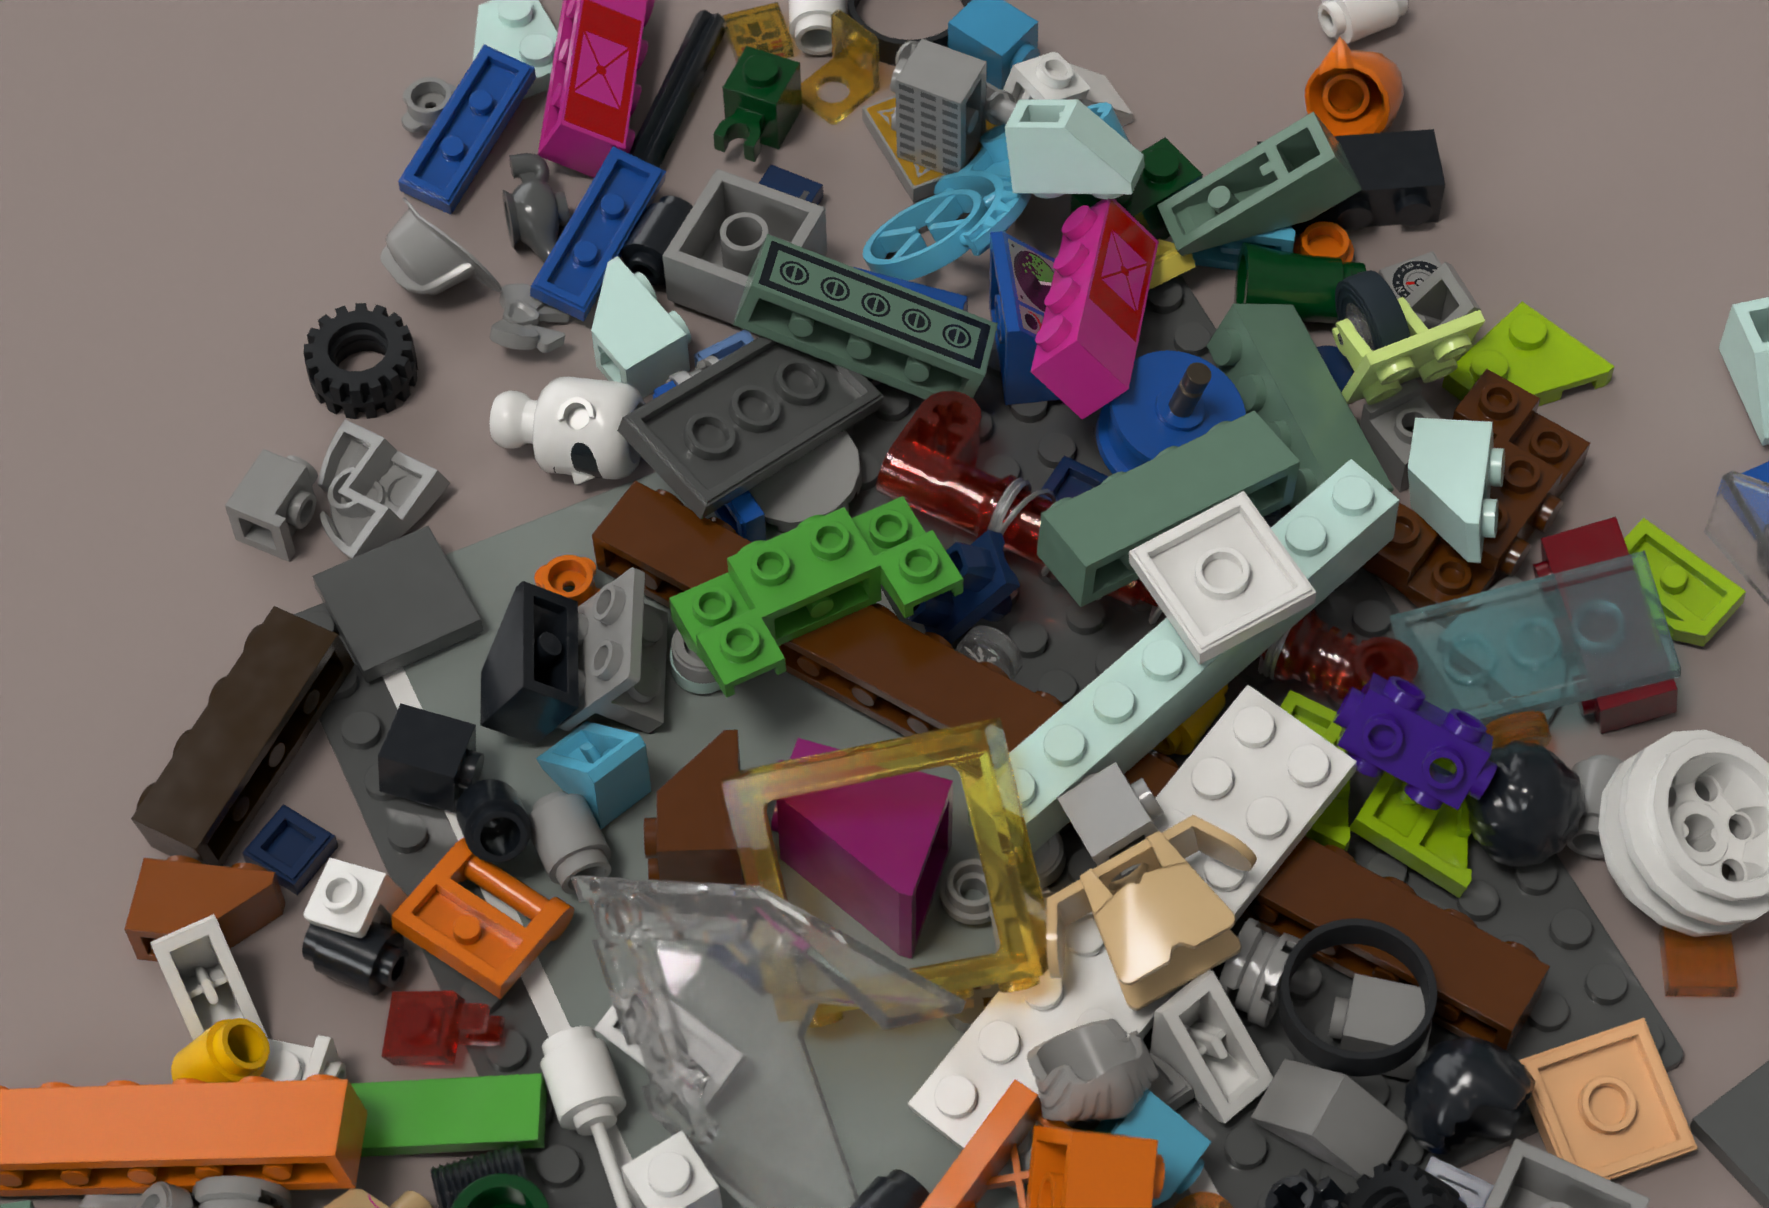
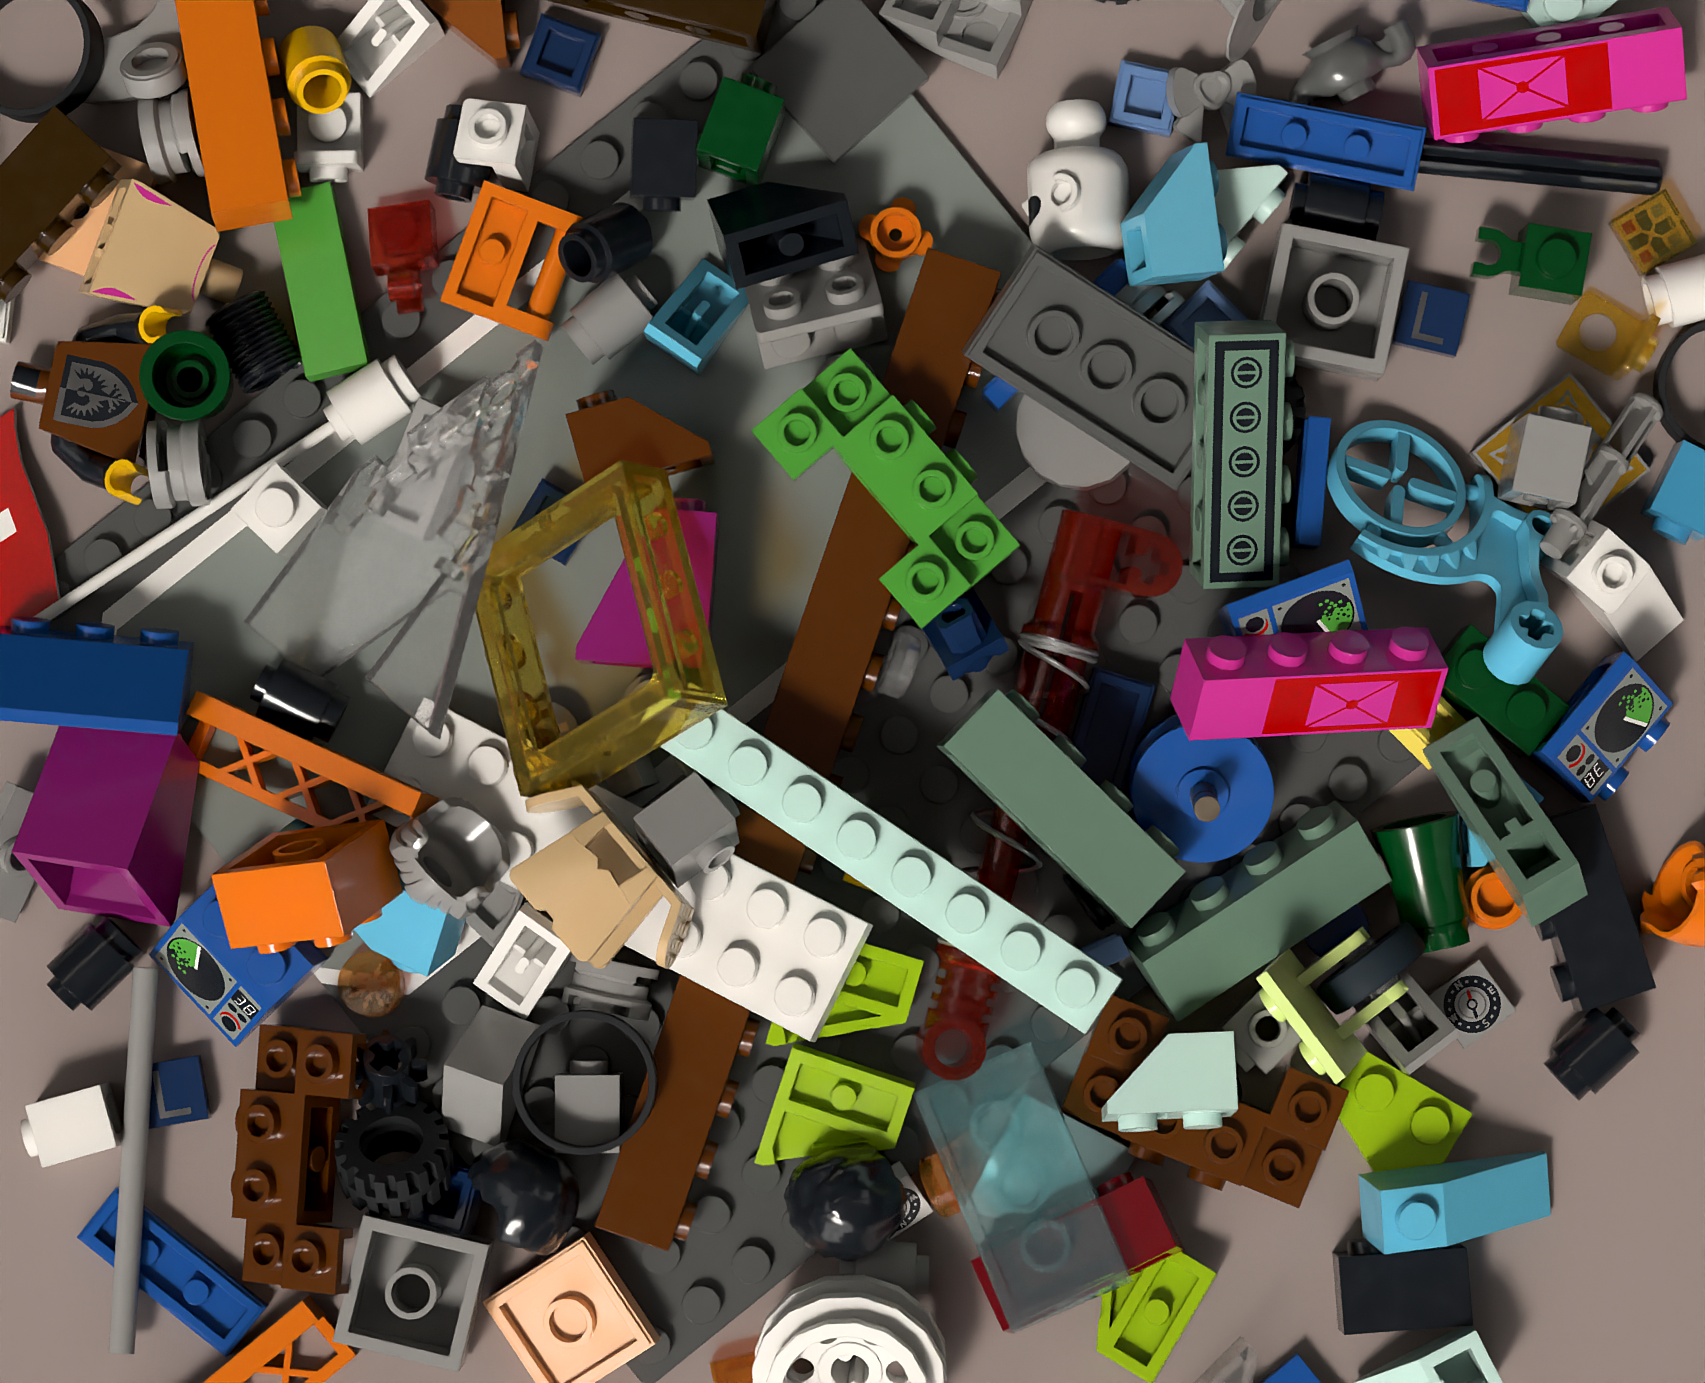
camera: 80 degrees right, 30 degrees up
(424, 662) = (741, 129): none -> dark green brick
(509, 370) = (1141, 100): none -> medium blue tile
(634, 328) = (1174, 223): none -> medium azure slope
(1068, 150) = (1477, 618): light aqua slope -> none
(1169, 105) = (1605, 723): none -> slope
(1222, 577) = (947, 880): white tile -> none
(1402, 733) = (852, 1090): dark purple brick -> none
(1482, 201) = (1593, 1052): none -> black brick
(1603, 329) = (1452, 1201): none -> medium azure slope
(1677, 381) = (1401, 1288): none -> black brick

